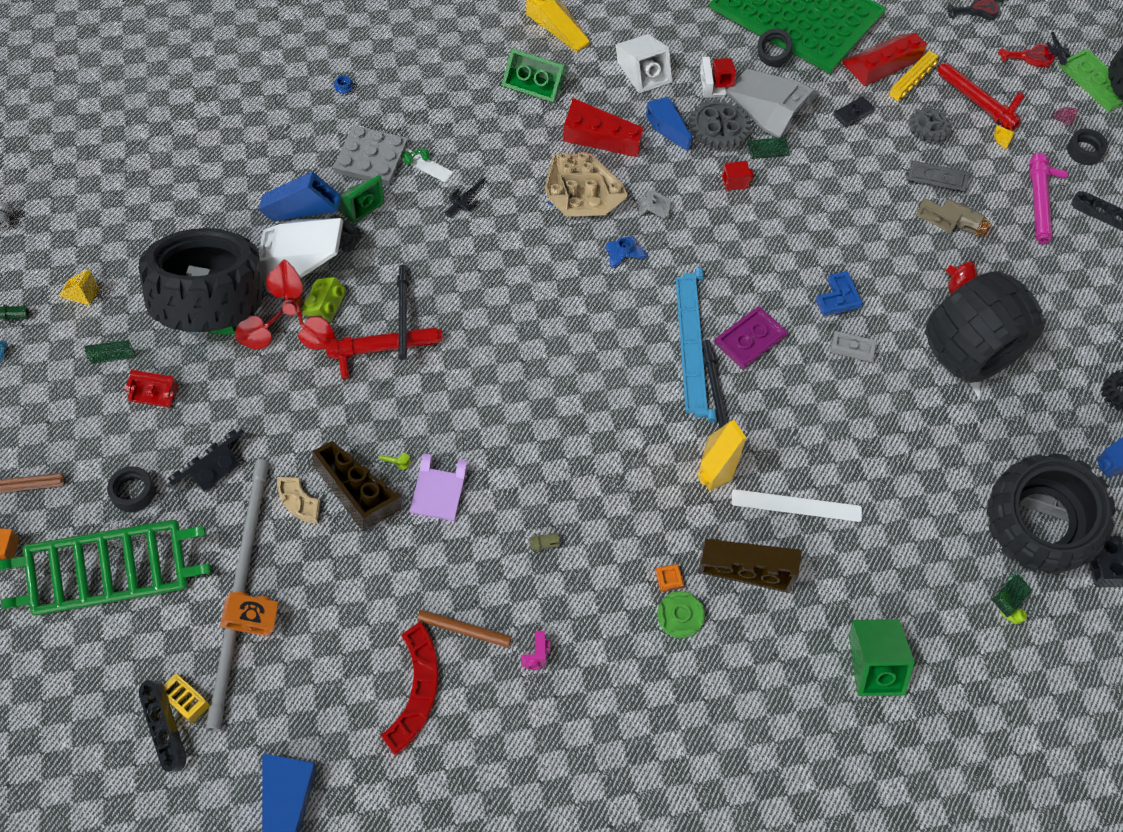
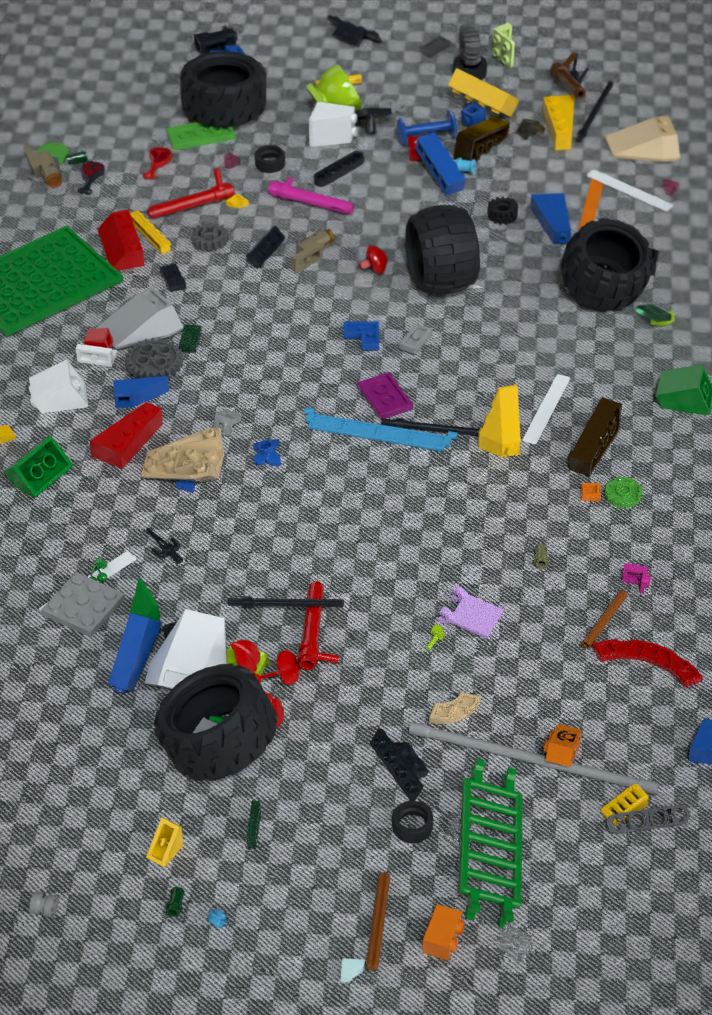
camera: 70 degrees left, 15 degrees down
(151, 388) = (306, 797): red hinge -> none
(355, 487) = (458, 662): dark brown wedge -> none
(736, 175) = (216, 362): red brick -> none
(771, 35) = (87, 292): black tyre -> none
(1058, 50) = (162, 143): black piece -> none

